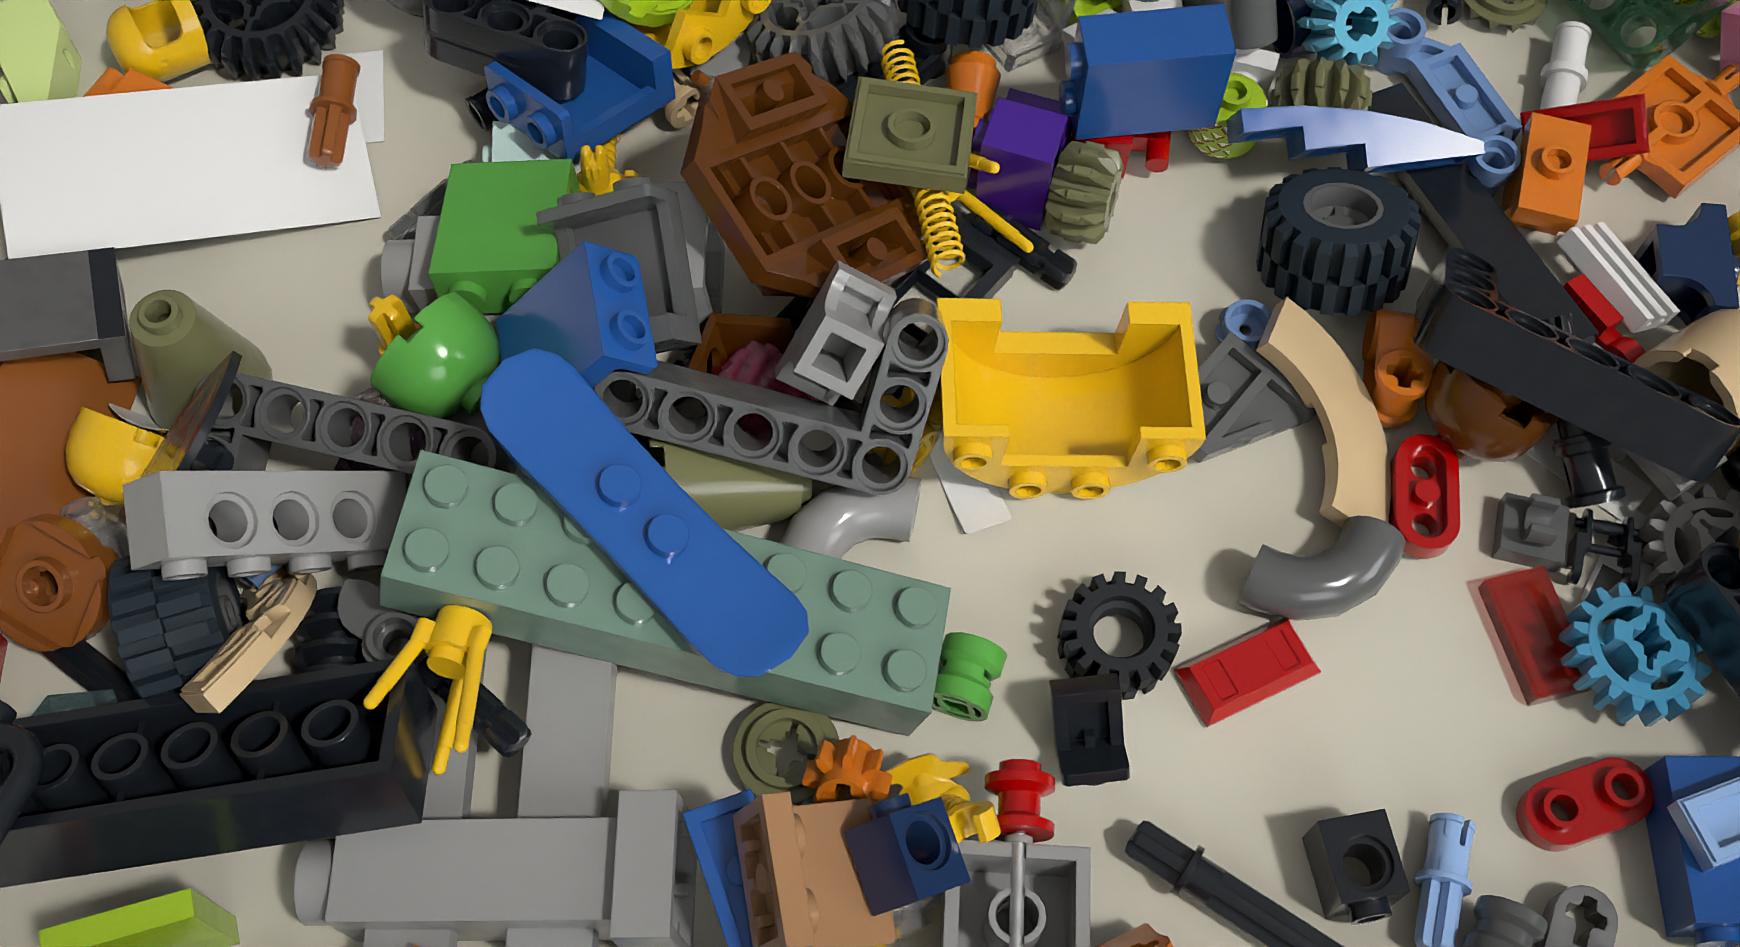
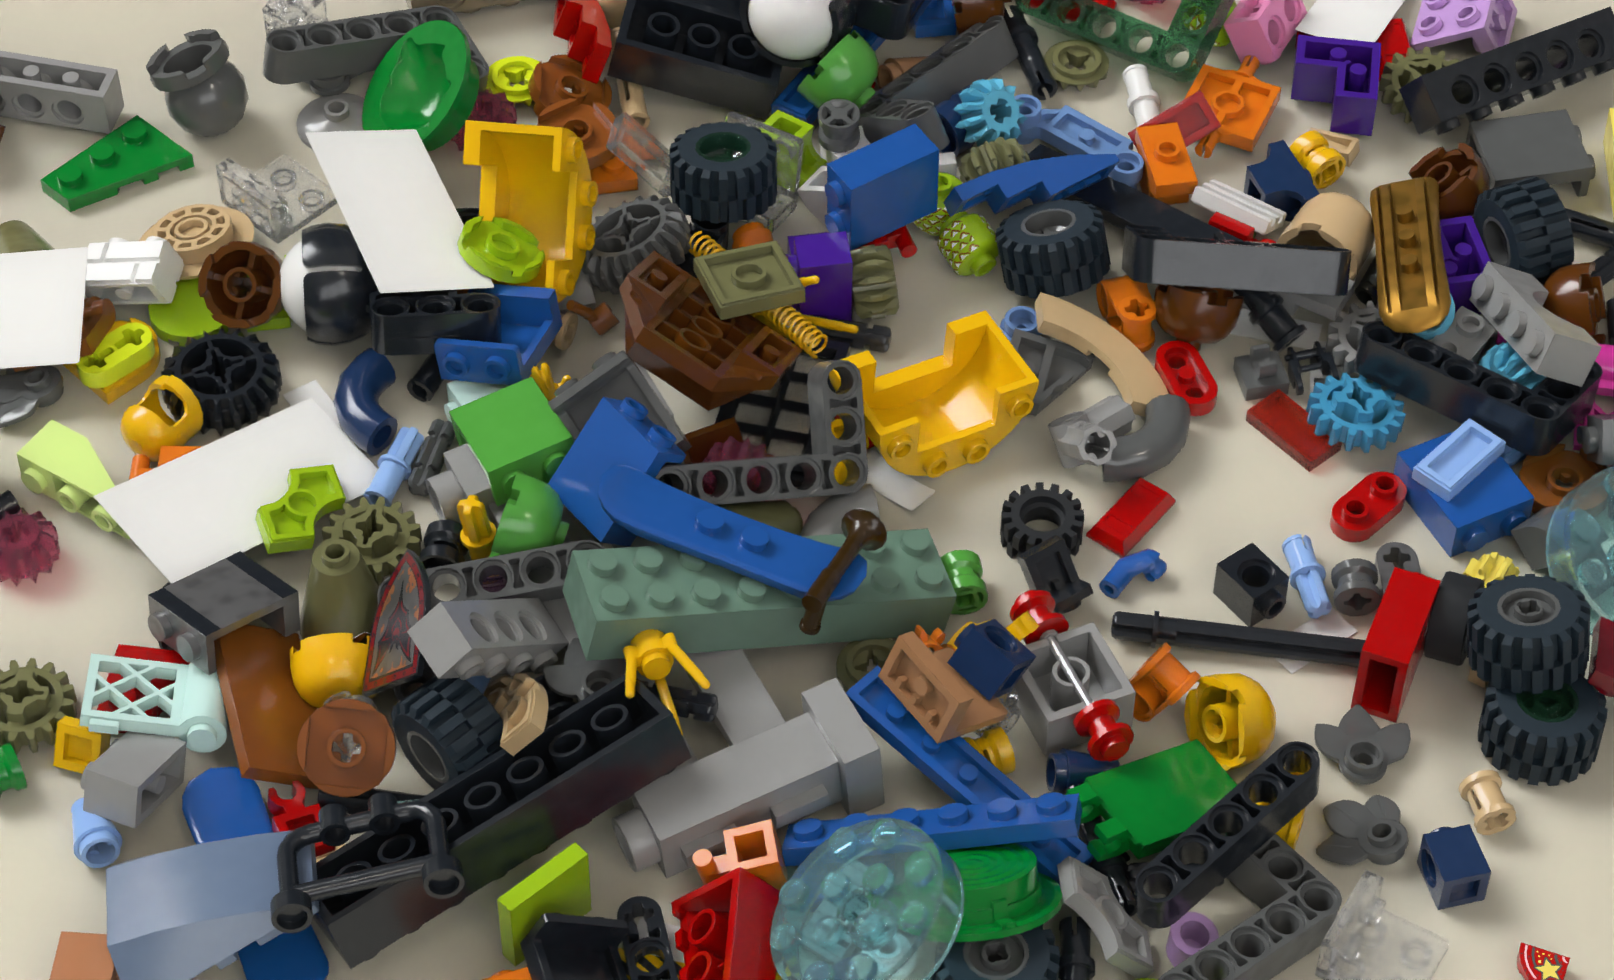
camera: 25 degrees left, 15 degrees down
(211, 227) = (291, 520): none -> lime tile
(292, 292) = (377, 532): none -> olive gear
(333, 110) = (322, 420): dark orange axle -> none
(356, 348) = (443, 544): none -> black wheel
(385, 202) = (395, 465): none -> light blue axle
(392, 106) = (358, 402): none -> dark blue cylinder
(821, 587) = (862, 531): none -> dark brown piece
(838, 336) = (782, 406): light grey brick -> none
(1207, 752) = (1129, 567): none -> blue arm
(1234, 186) = (968, 244): none -> lime head
(1237, 523) = (1091, 433): none -> light grey piece

